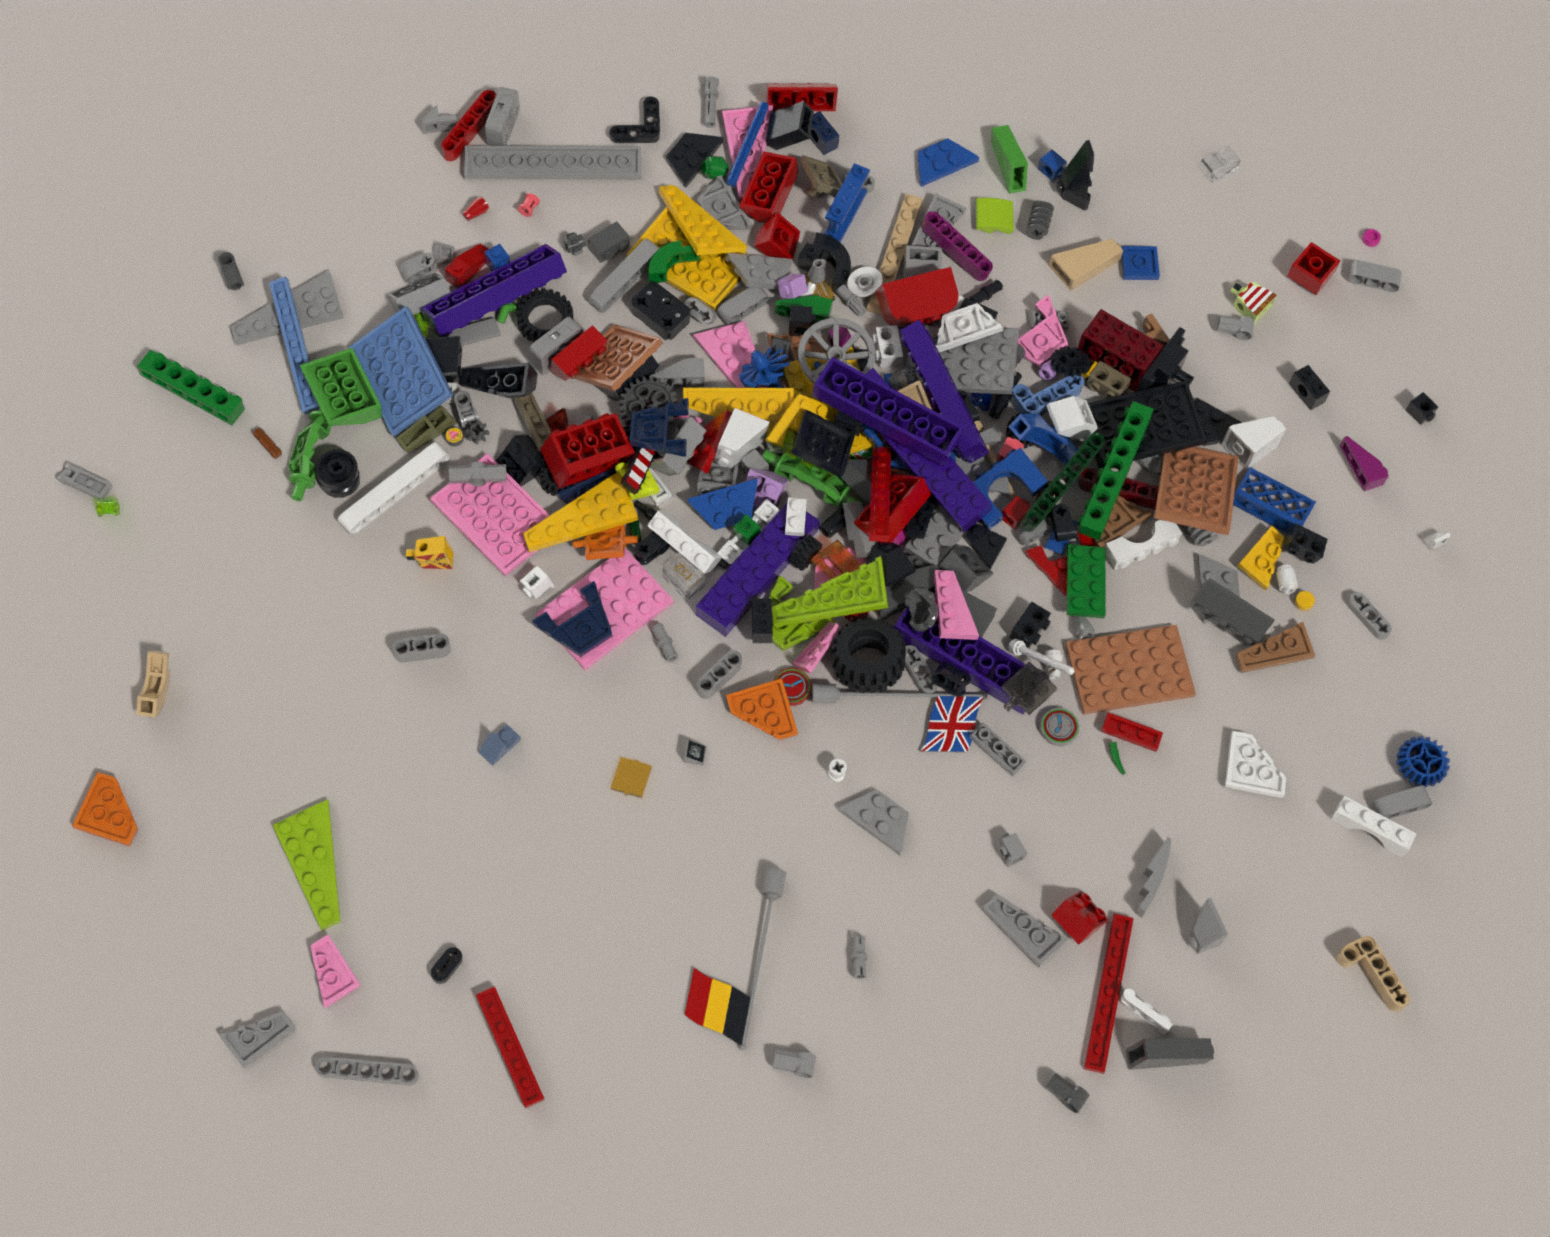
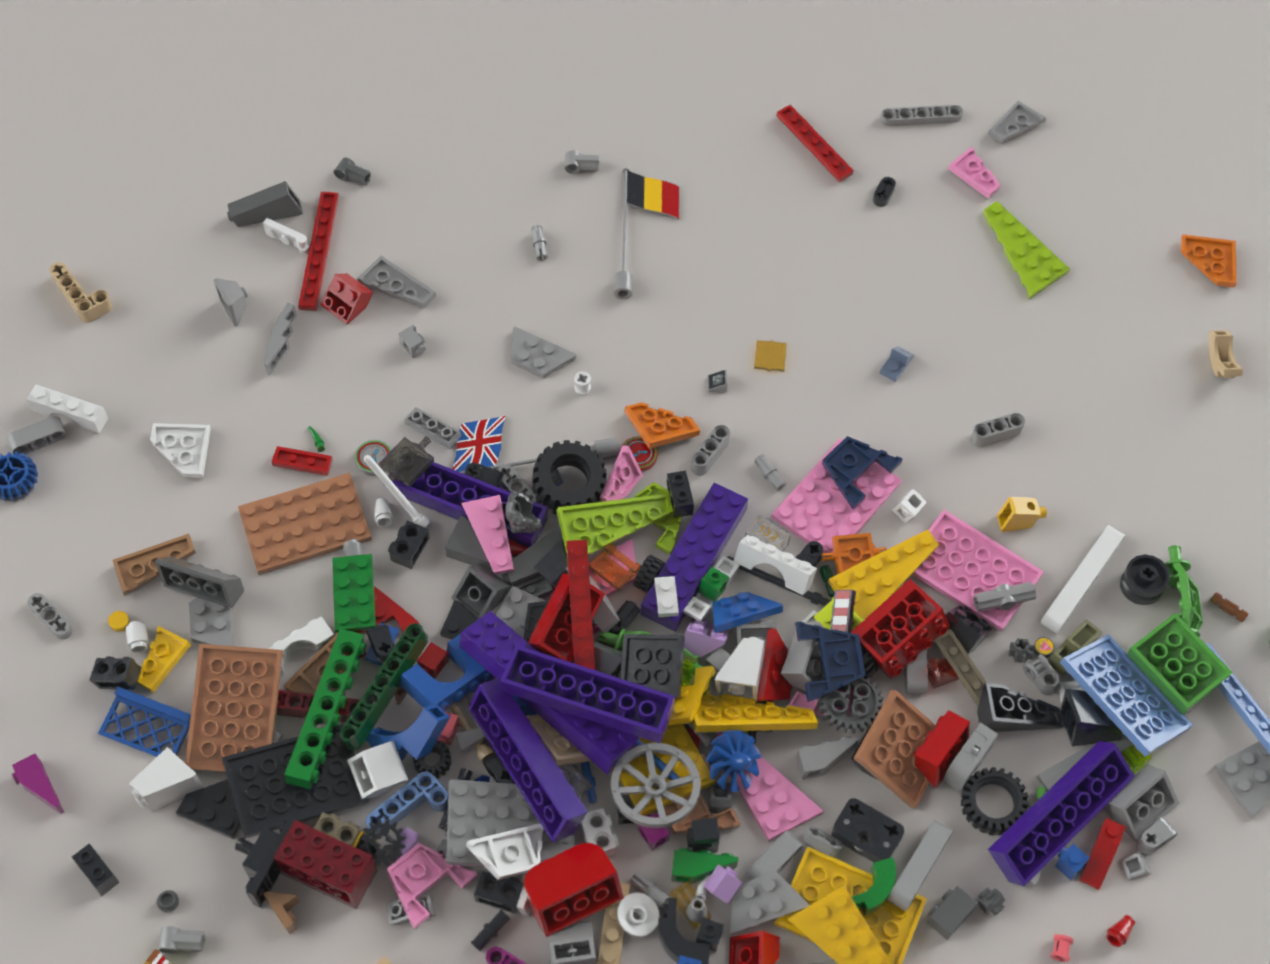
camera: 175 degrees right, 5 degrees down
(1248, 358) = (168, 901): none -> dark grey plate

